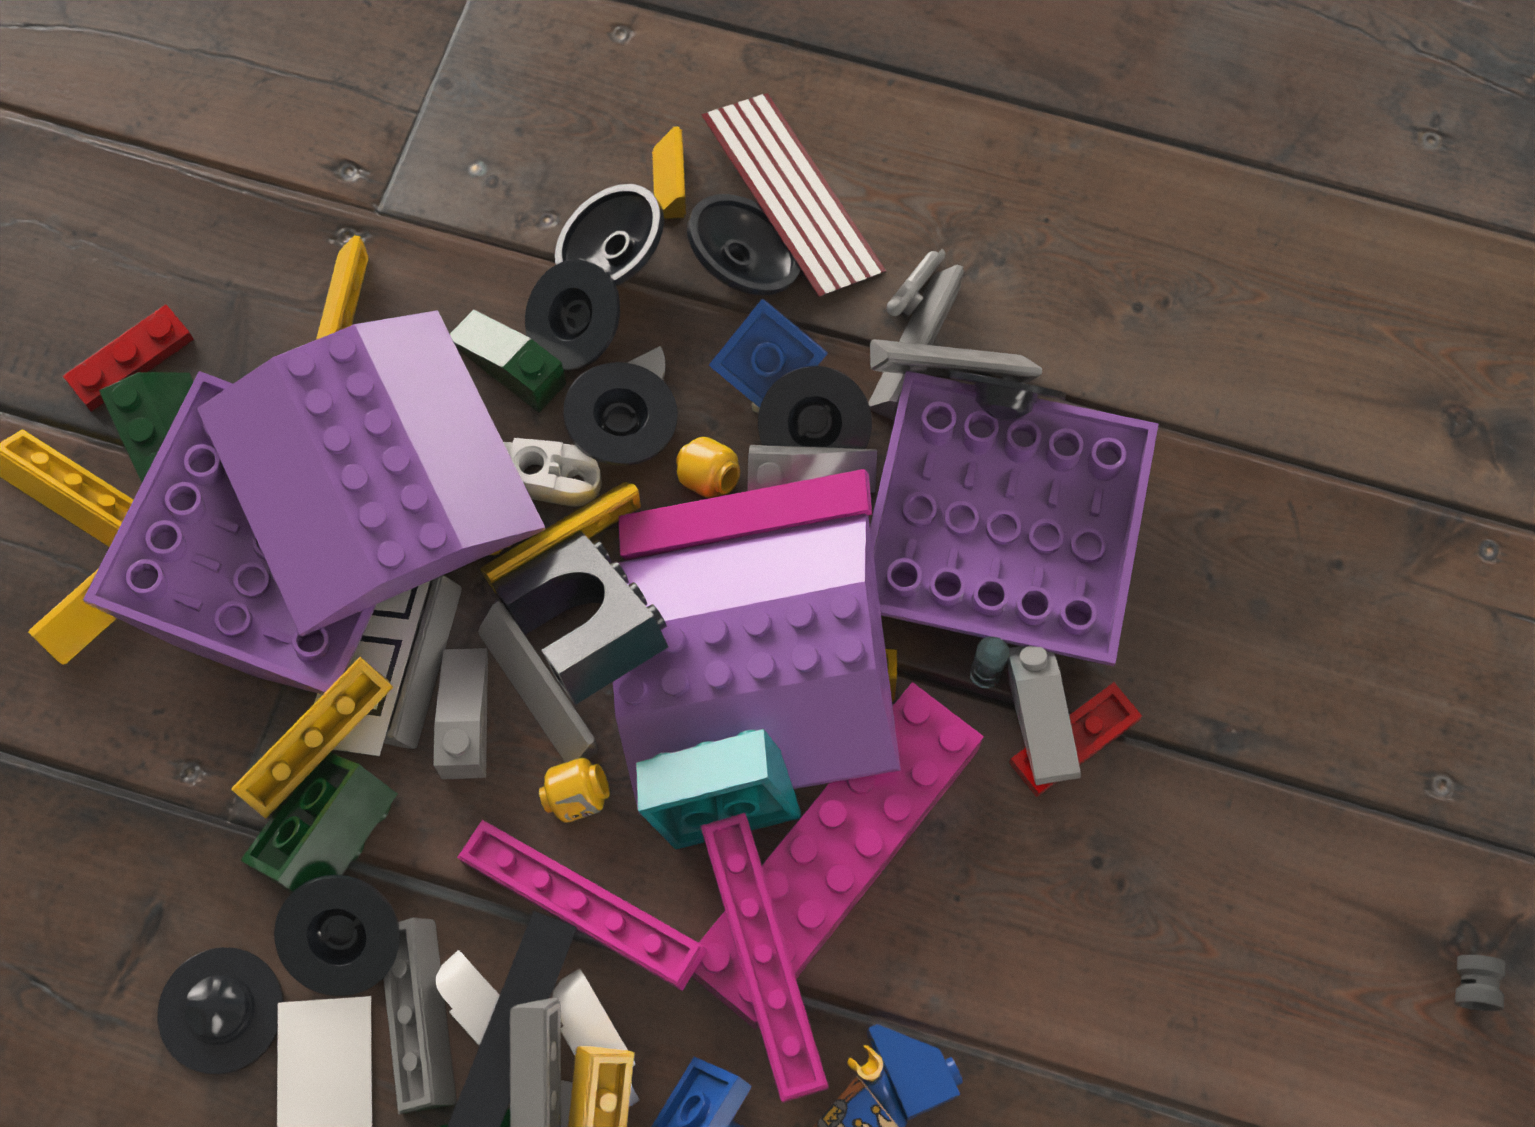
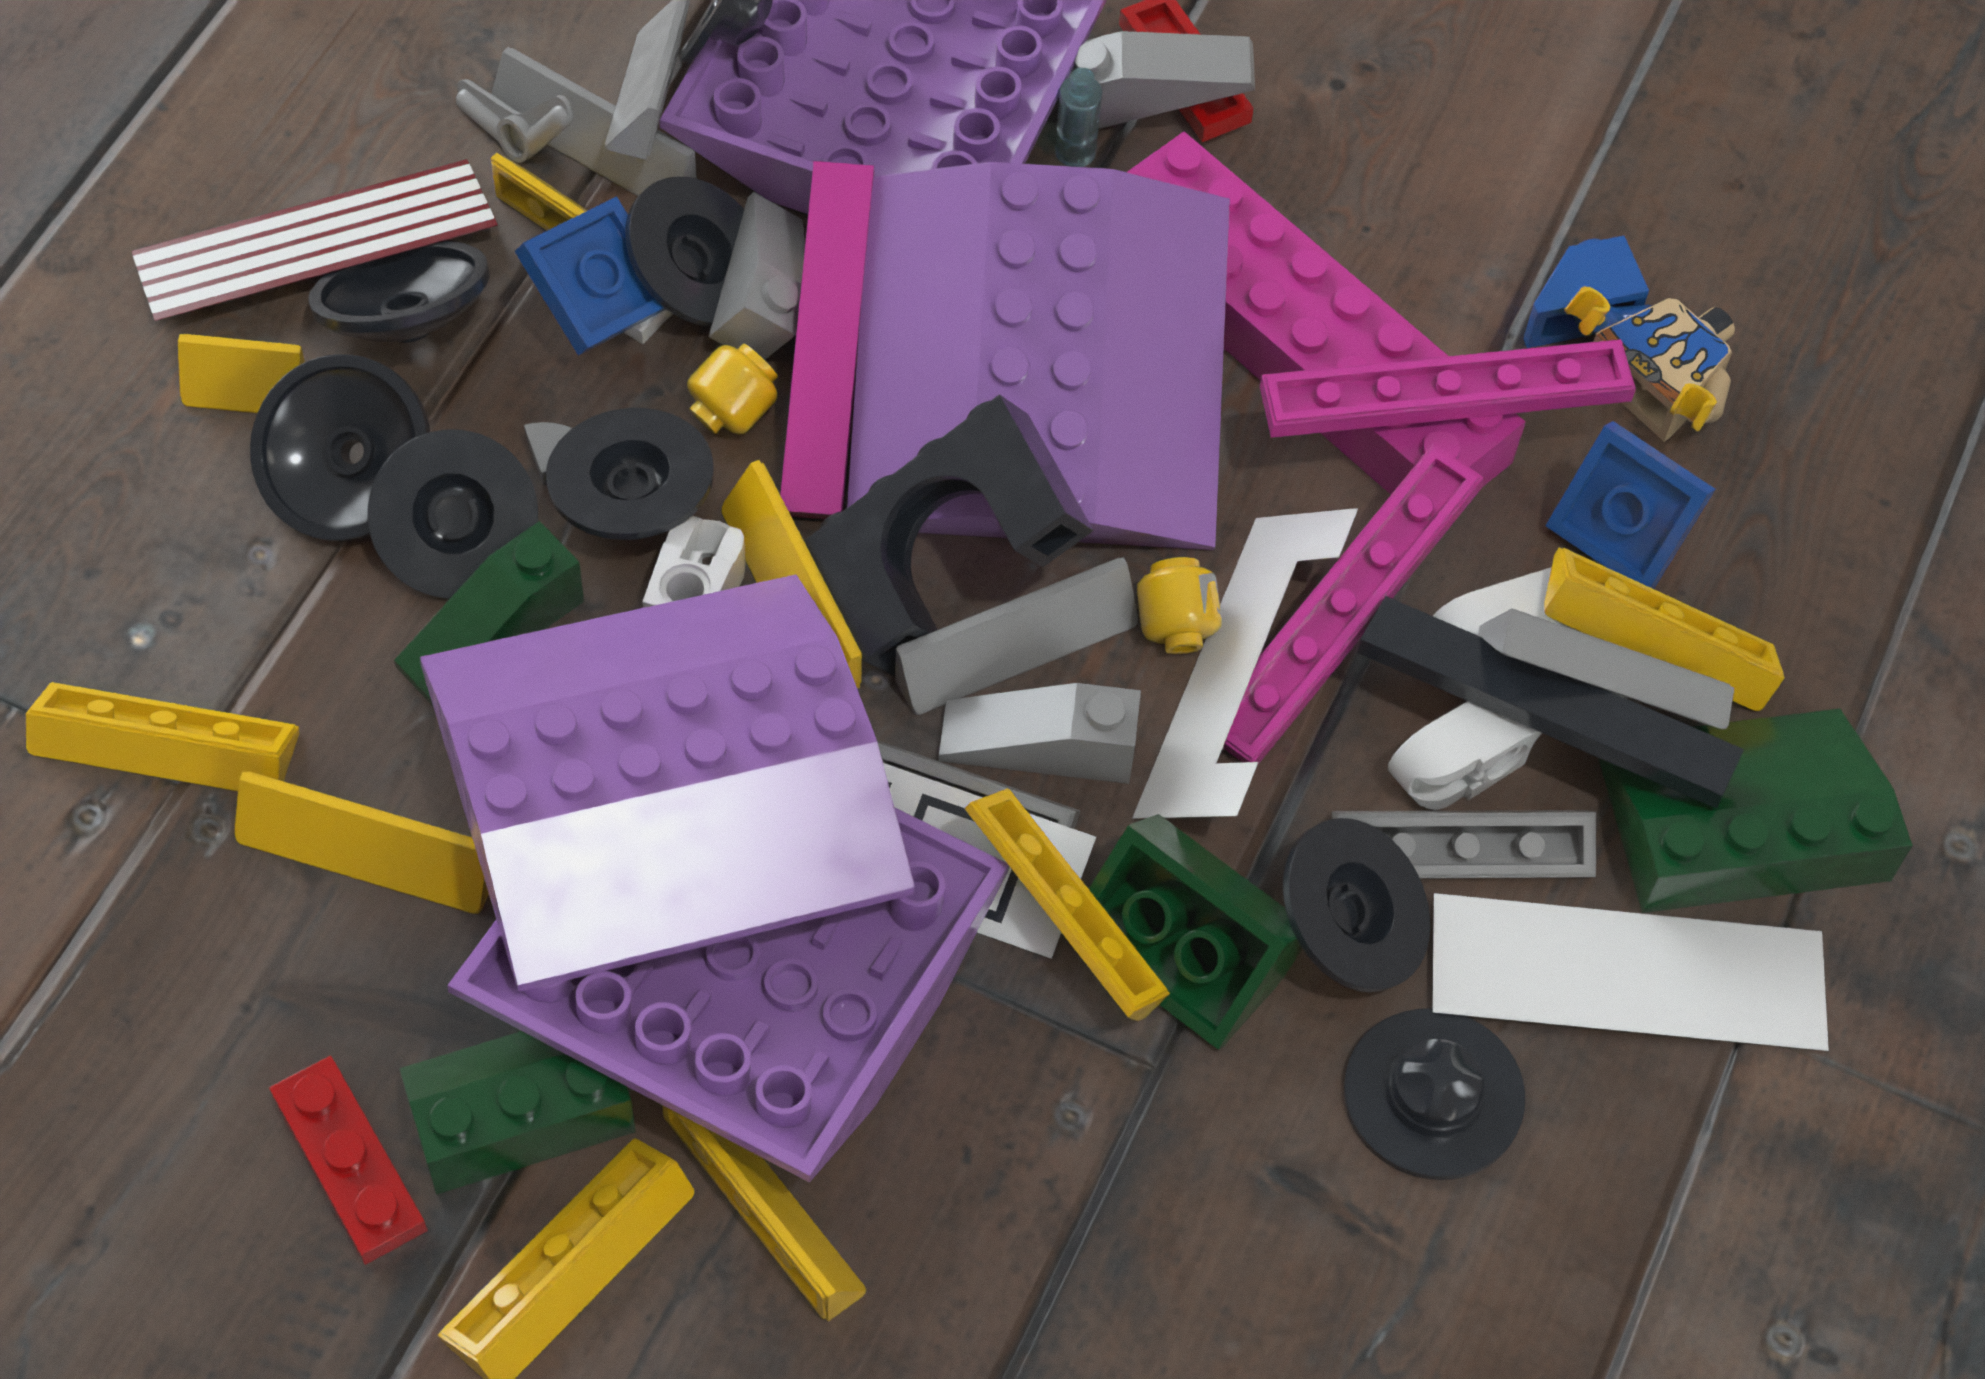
camera: 85 degrees left, 10 degrees down
(403, 195) = (156, 737): none -> yellow slope
(637, 857) = (1186, 771): none -> white sticker
(714, 783) = (1214, 411): teal slope -> none
(852, 325) = (531, 194): none -> yellow slope

